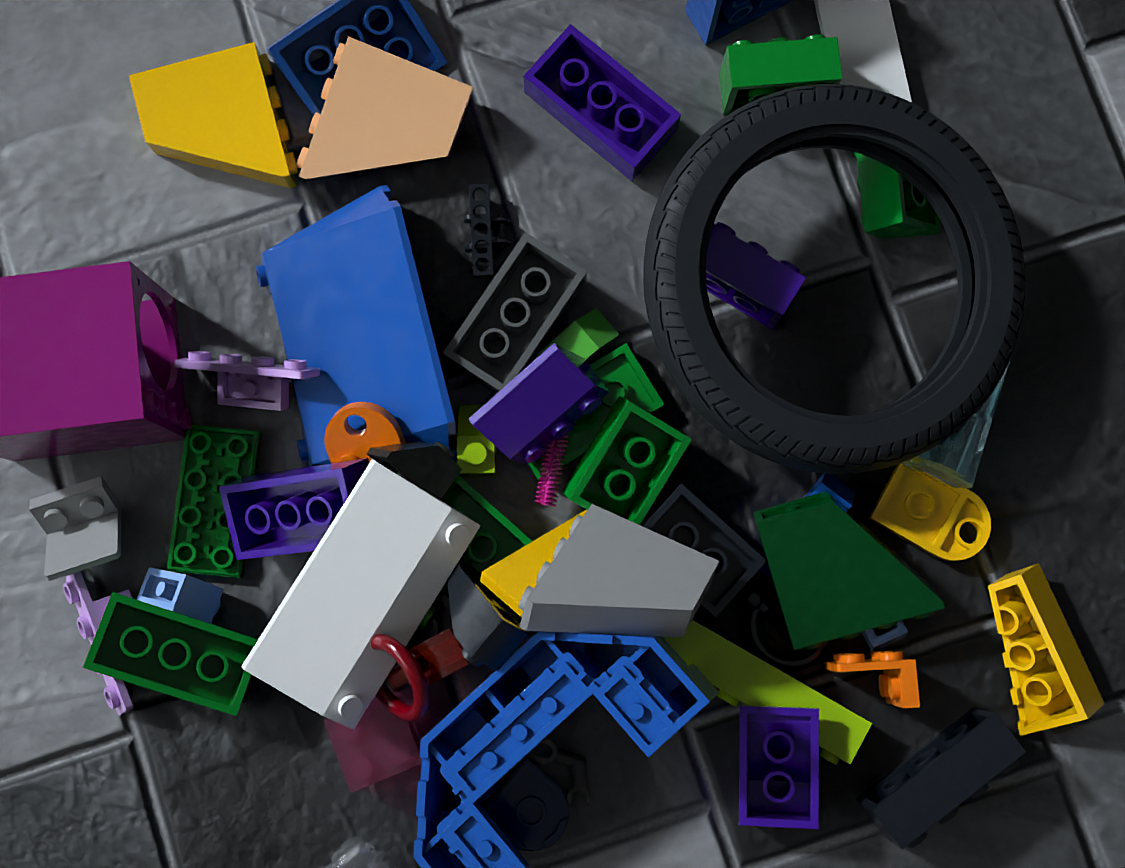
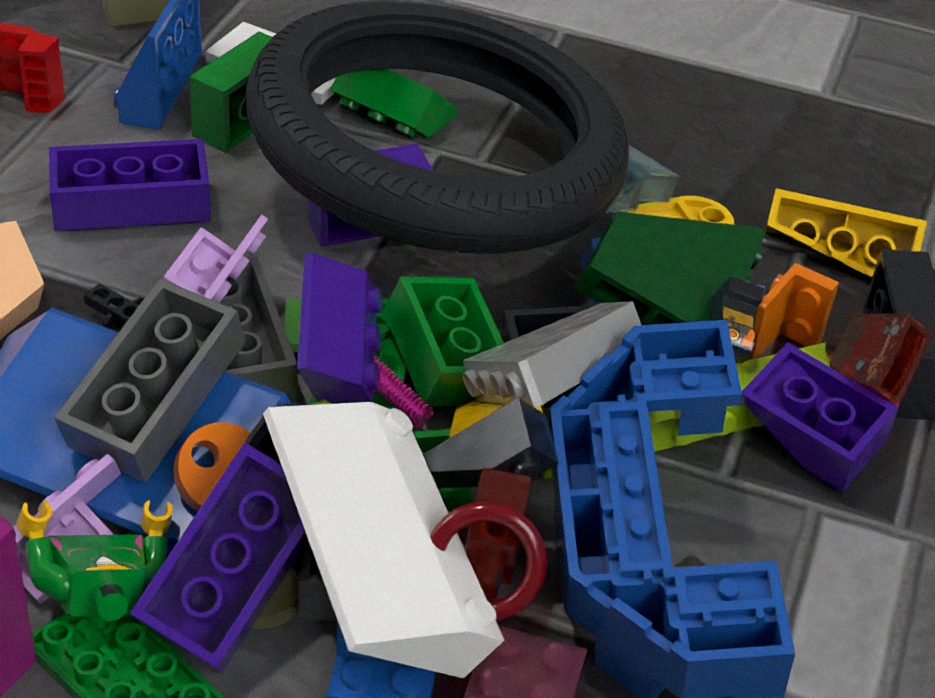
camera: 55 degrees left, 40 degrees down
(242, 434) = (94, 571): none -> green torso
(377, 341) = (151, 379): none -> dark grey brick
(525, 263) = (209, 262): none -> lavender bracket
(809, 654) = (738, 305): none -> black leg
(854, 785) = (879, 352): none -> clear red torso

